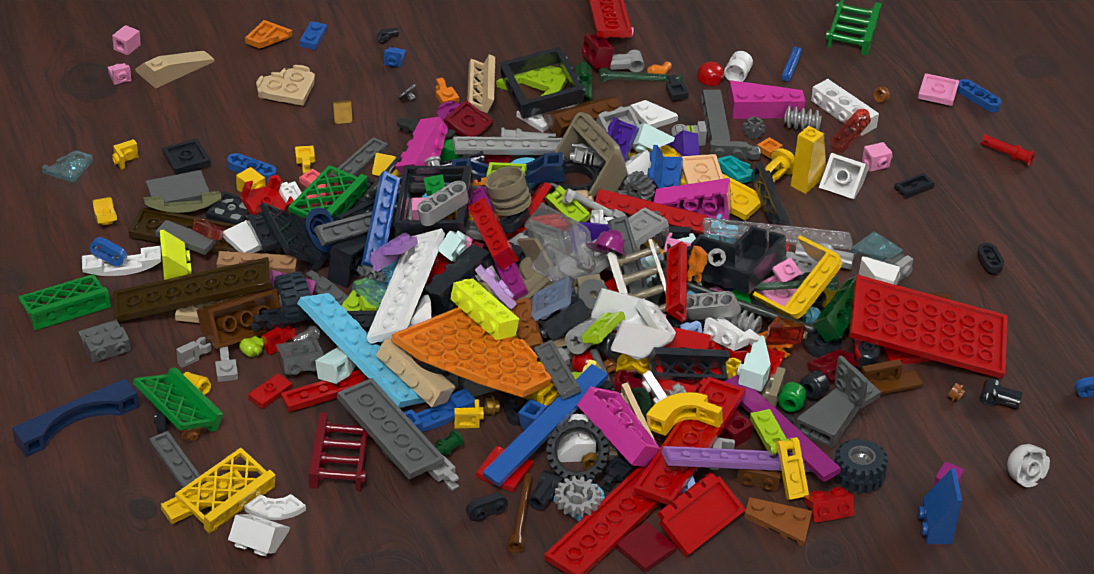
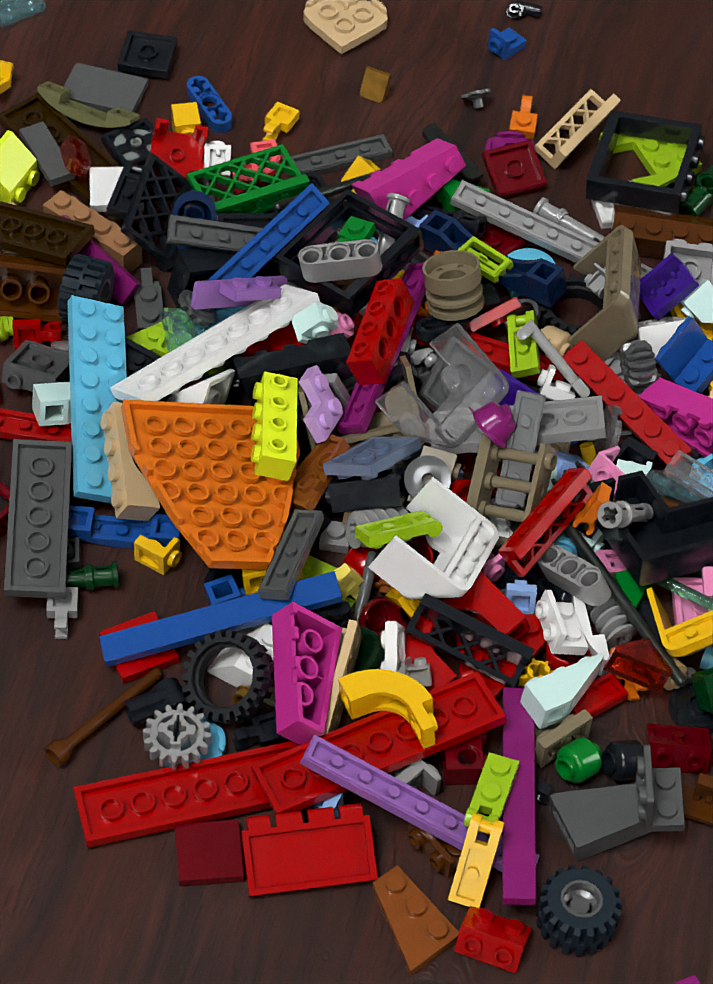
camera: 35 degrees right, 10 degrees up
(124, 152) = (83, 16): yellow bracket -> none
(271, 318) = (40, 305): black plate -> none
(486, 506) = (67, 683): black plate -> none
(491, 406) = (193, 559): pearl gold plate -> none

